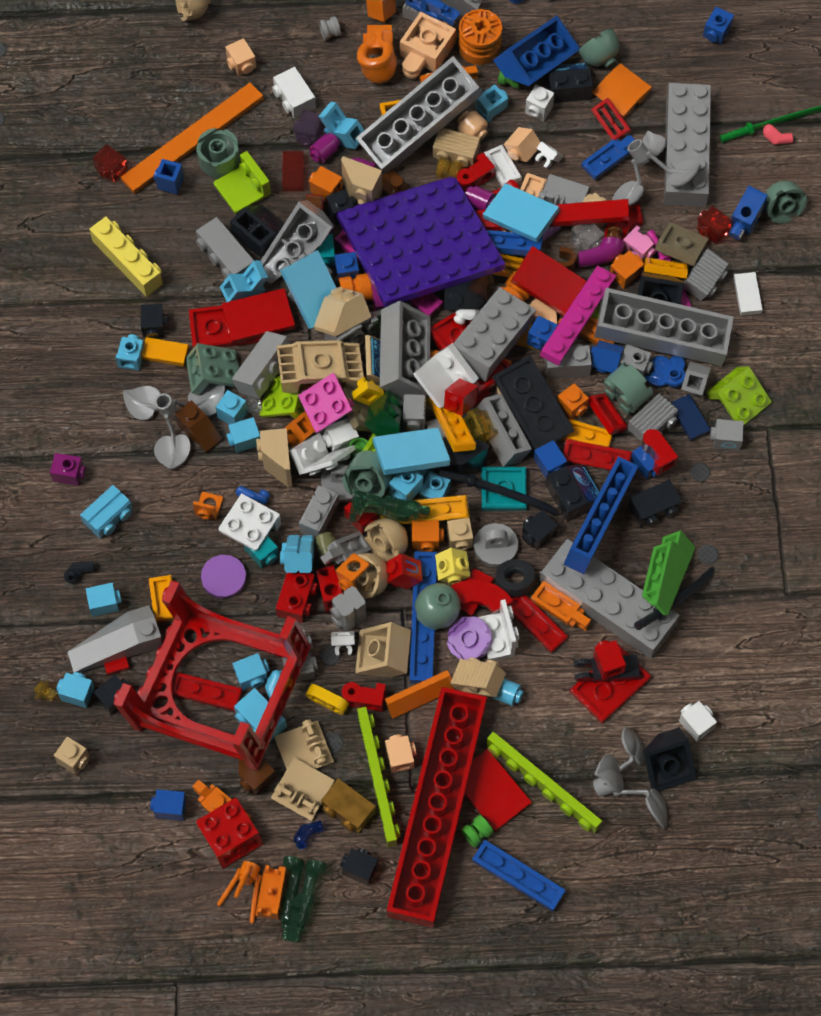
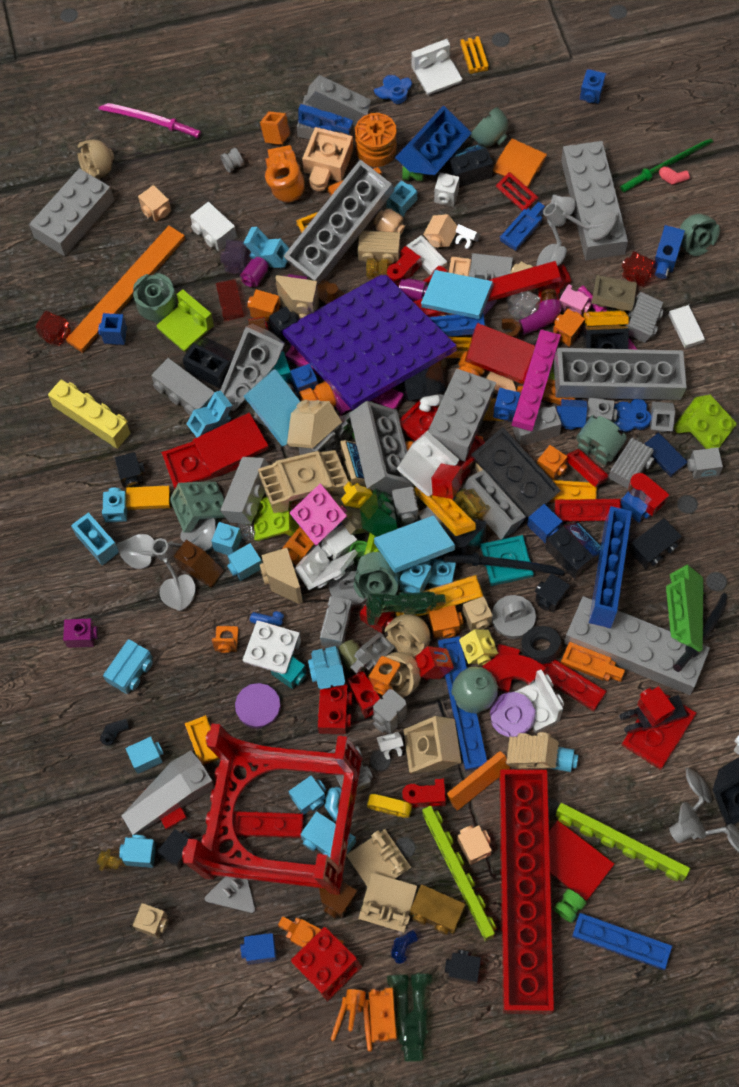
camera: 10 degrees left, 0 degrees up
(103, 381) = (95, 538): none -> medium azure brick
(155, 49) = (71, 212): none -> light grey brick
(156, 749) = (232, 894): none -> light grey piece

